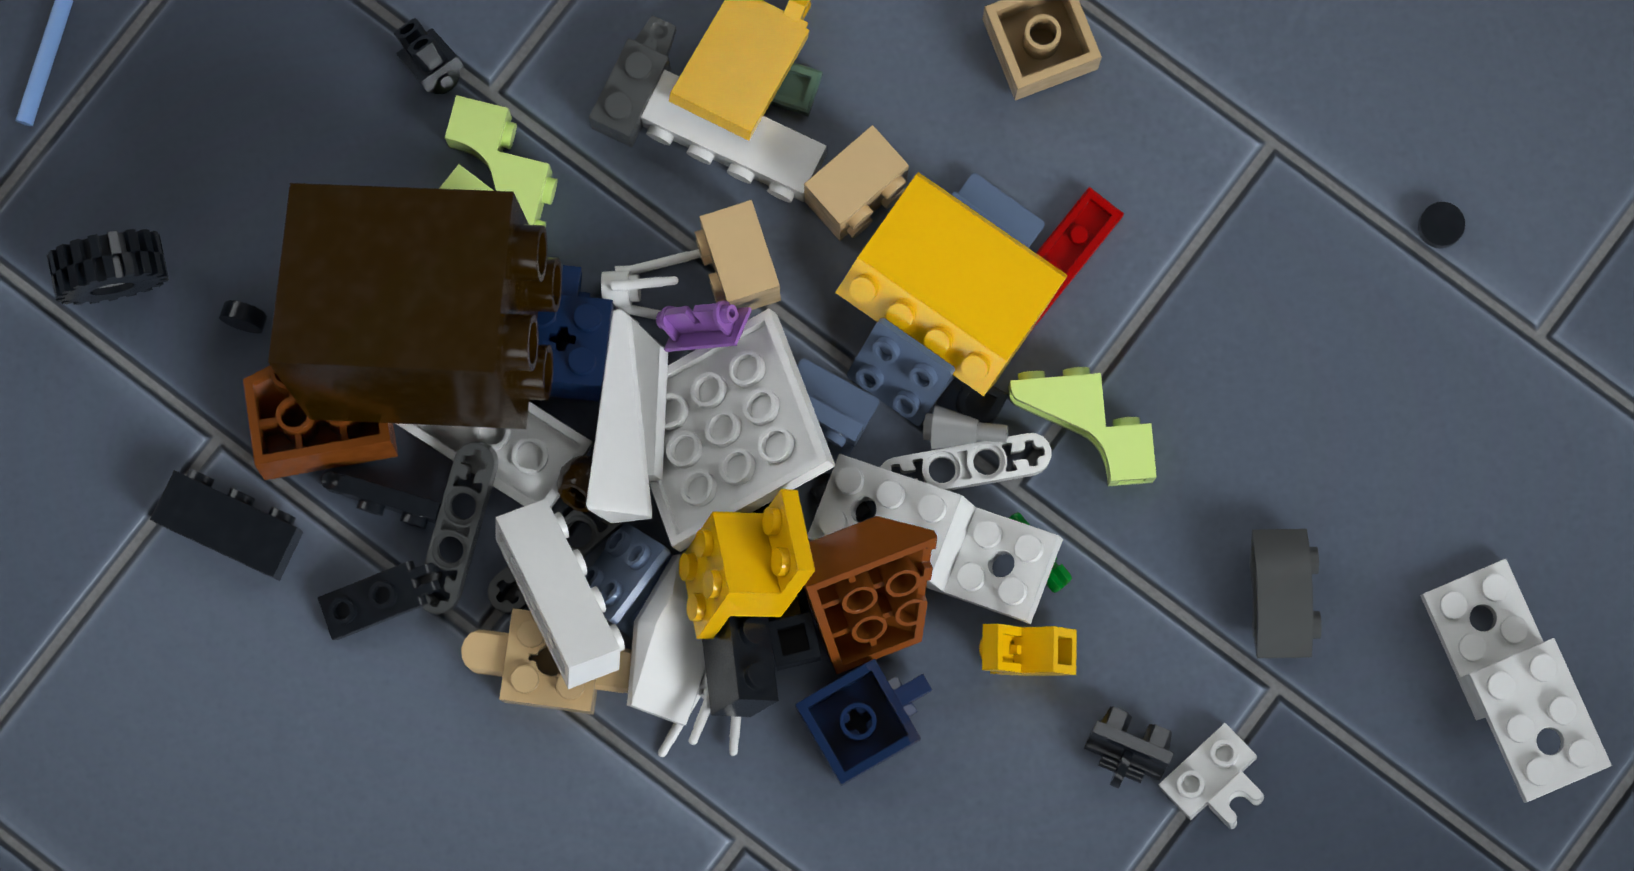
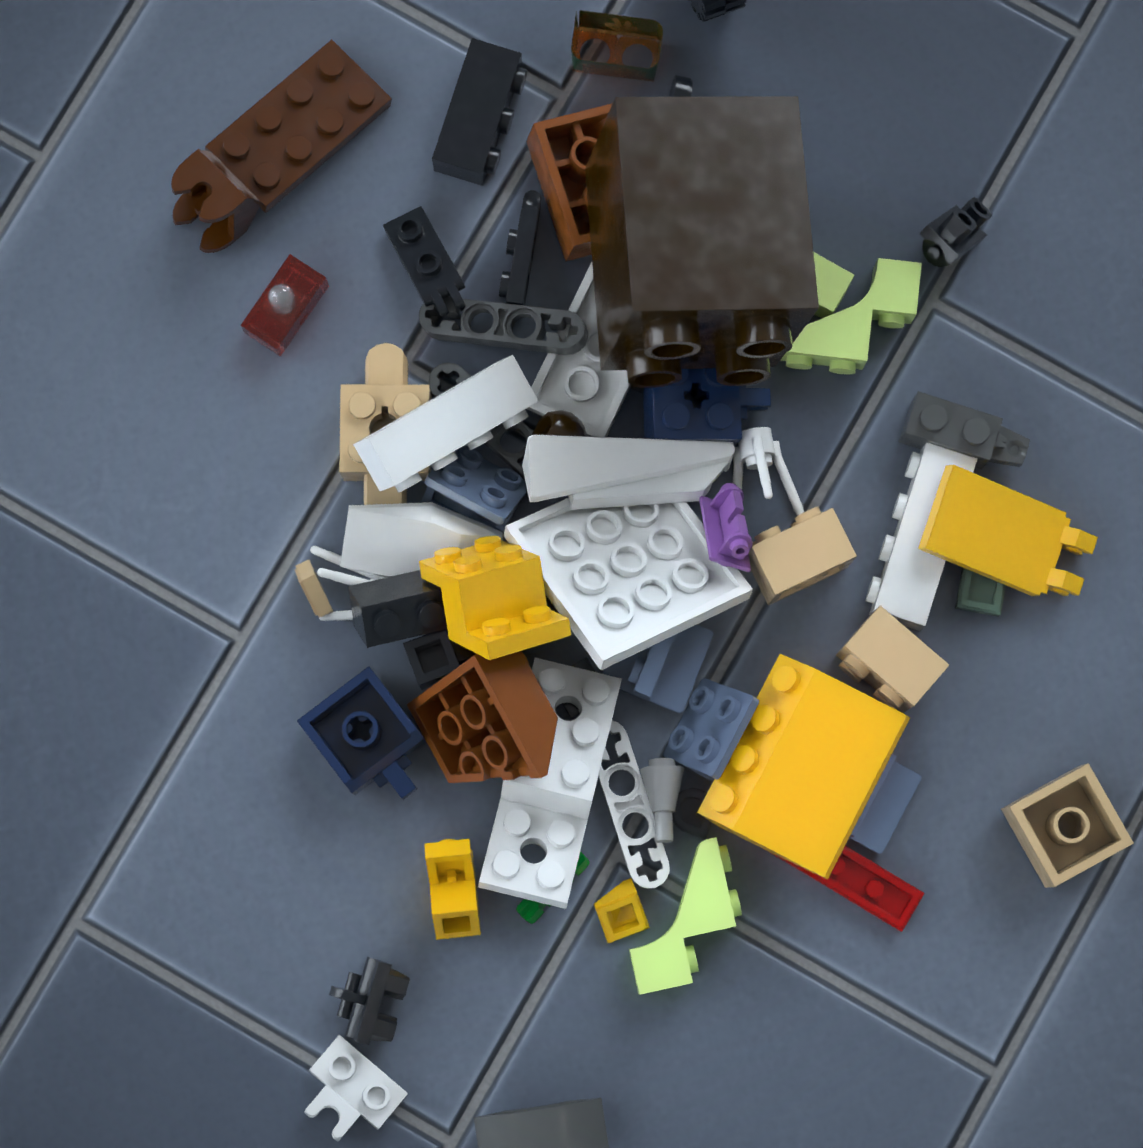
camera: 80 degrees right, 0 degrees up
(157, 382) = (606, 28): none -> clear orange piece
(230, 737) = (275, 145): none -> reddish brown hinge
(402, 751) = (285, 305): none -> clear red piece
(703, 756) = (313, 589): none -> tan tile
(1070, 487) = (621, 912): none -> yellow slope

